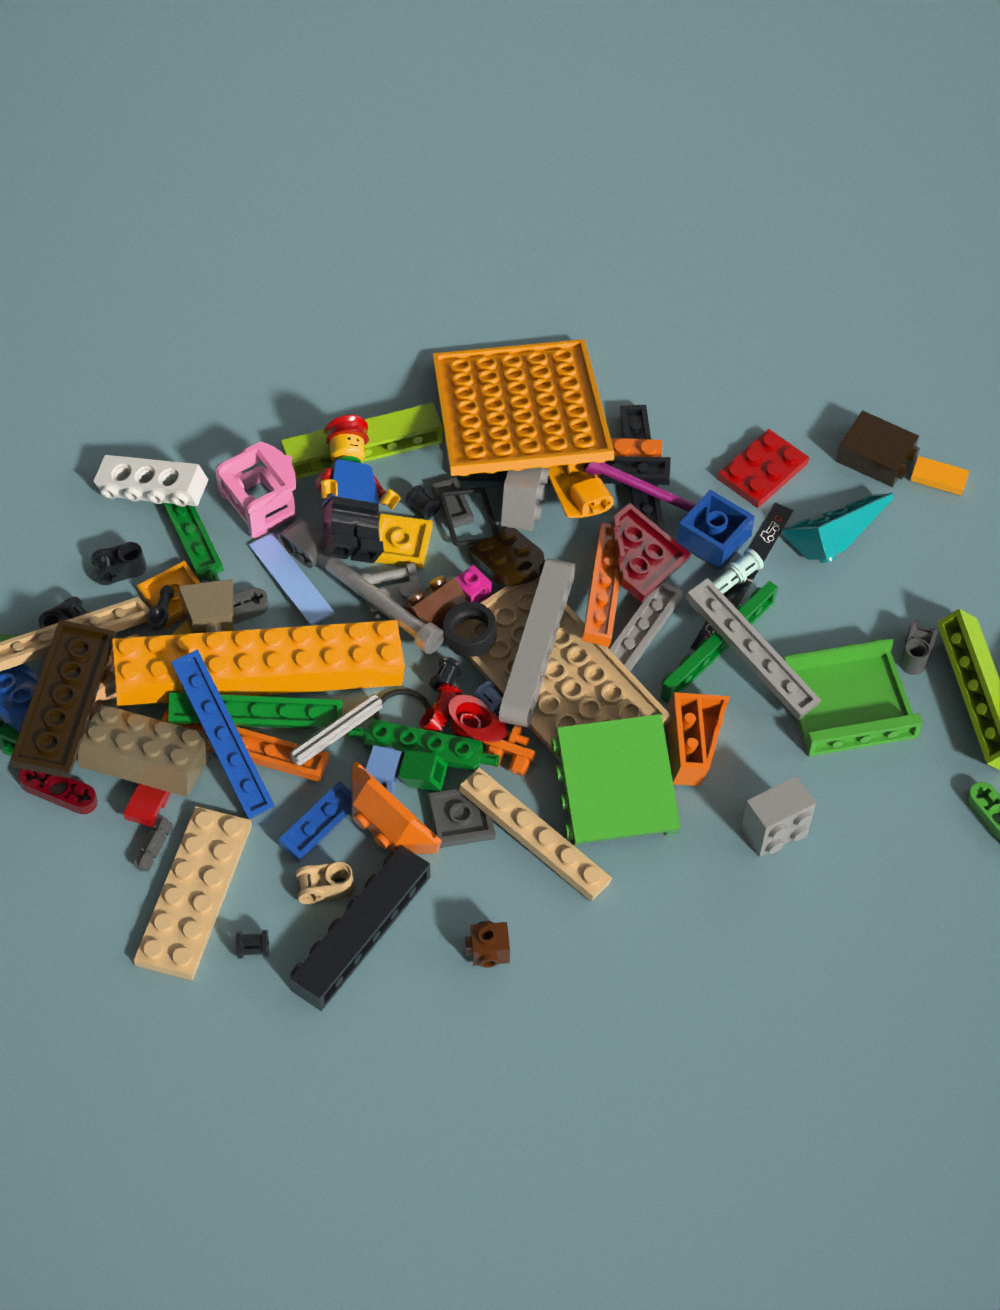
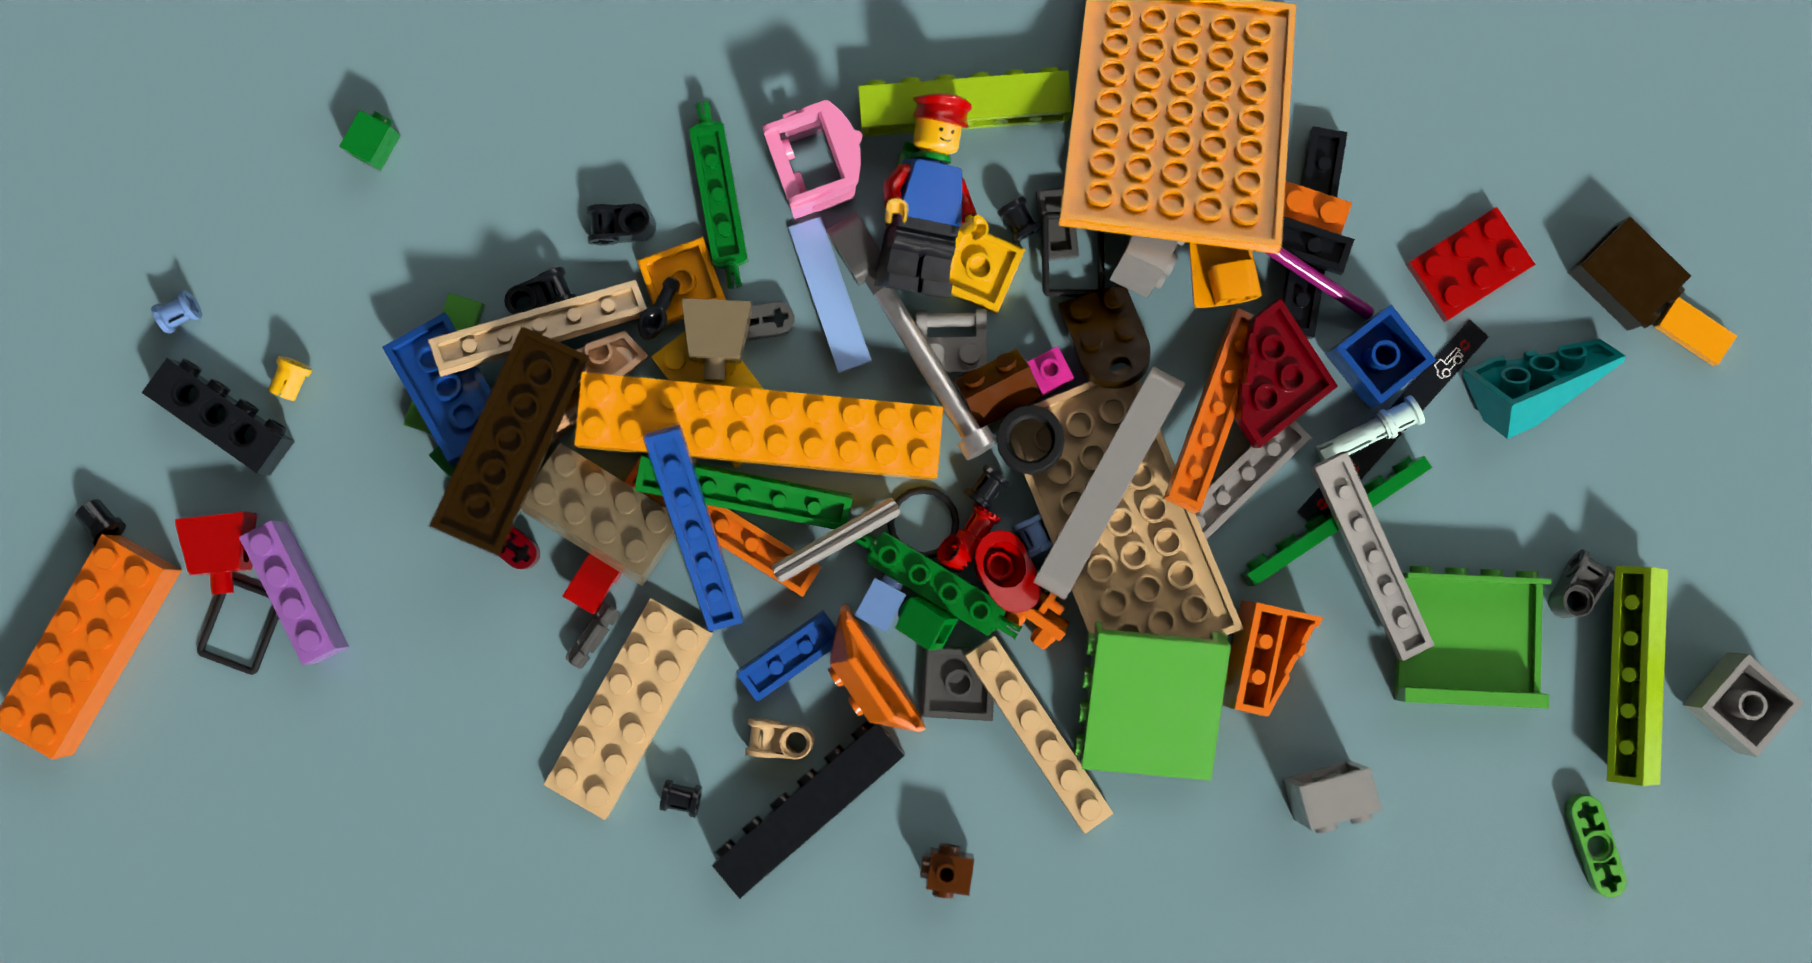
camera: 15 degrees right, 30 degrees up
(151, 480) = (638, 84): white brick -> none

